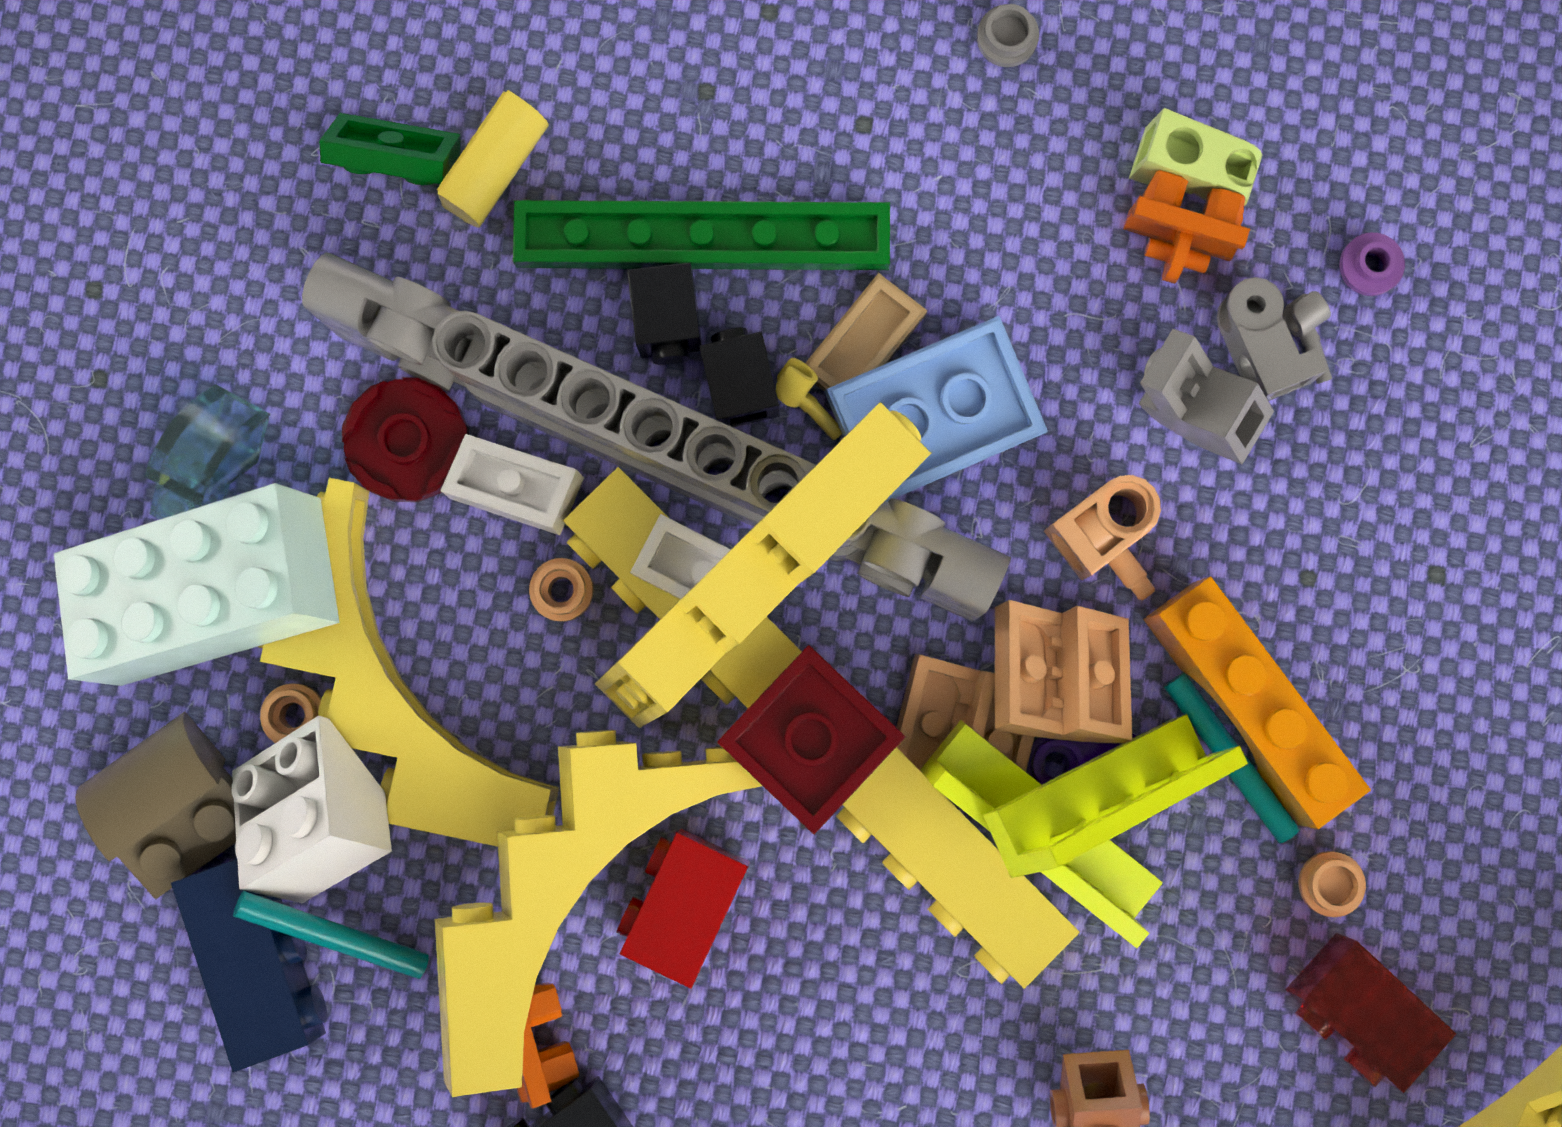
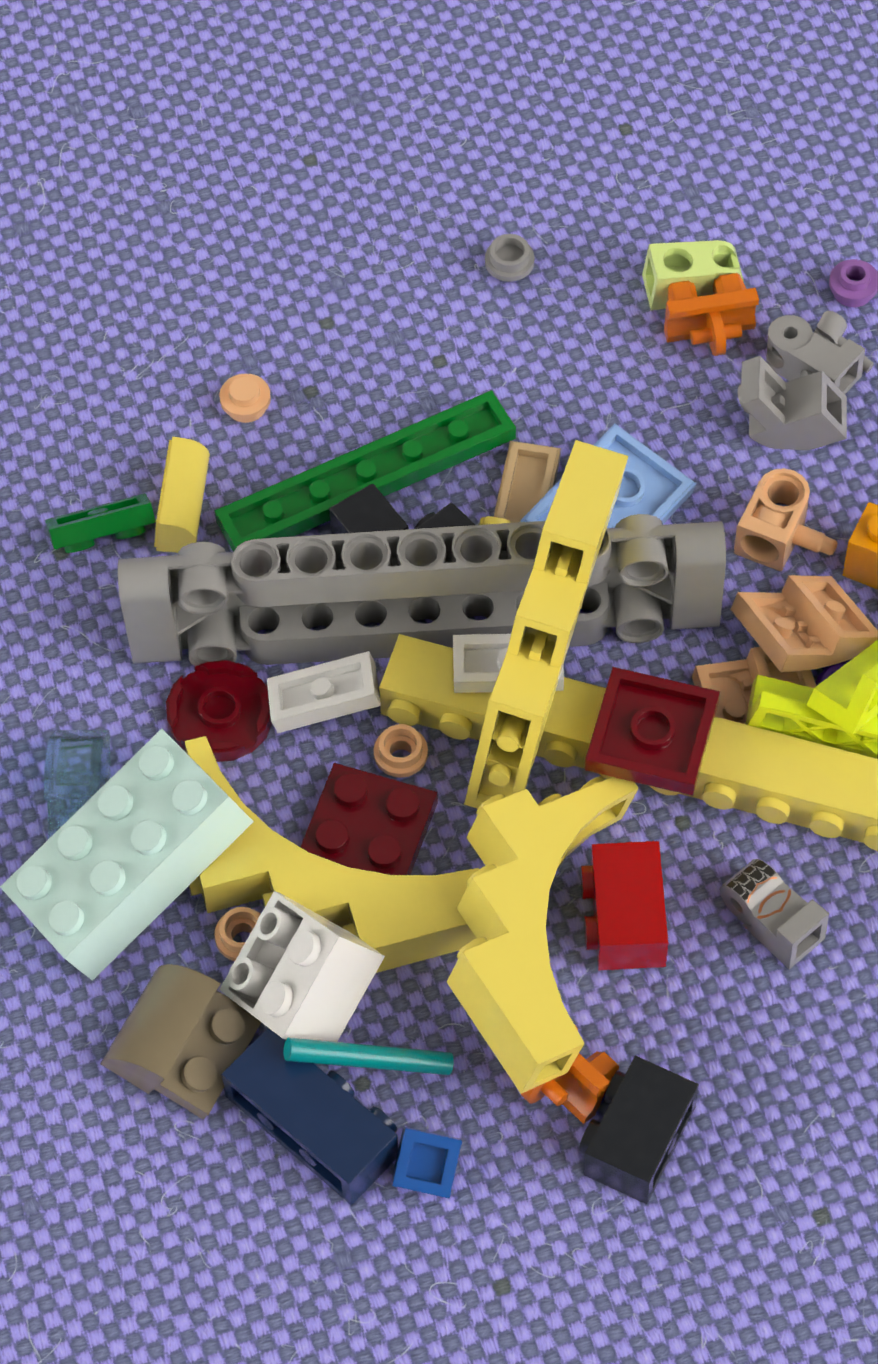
camera: 30 degrees left, 25 degrees down
(335, 1071) = (426, 1162): none -> blue plate
(482, 659) = (370, 821): none -> dark red plate
(626, 66) = (245, 397): none -> light nougat plate
(835, 985) = (775, 912): none -> light grey leg

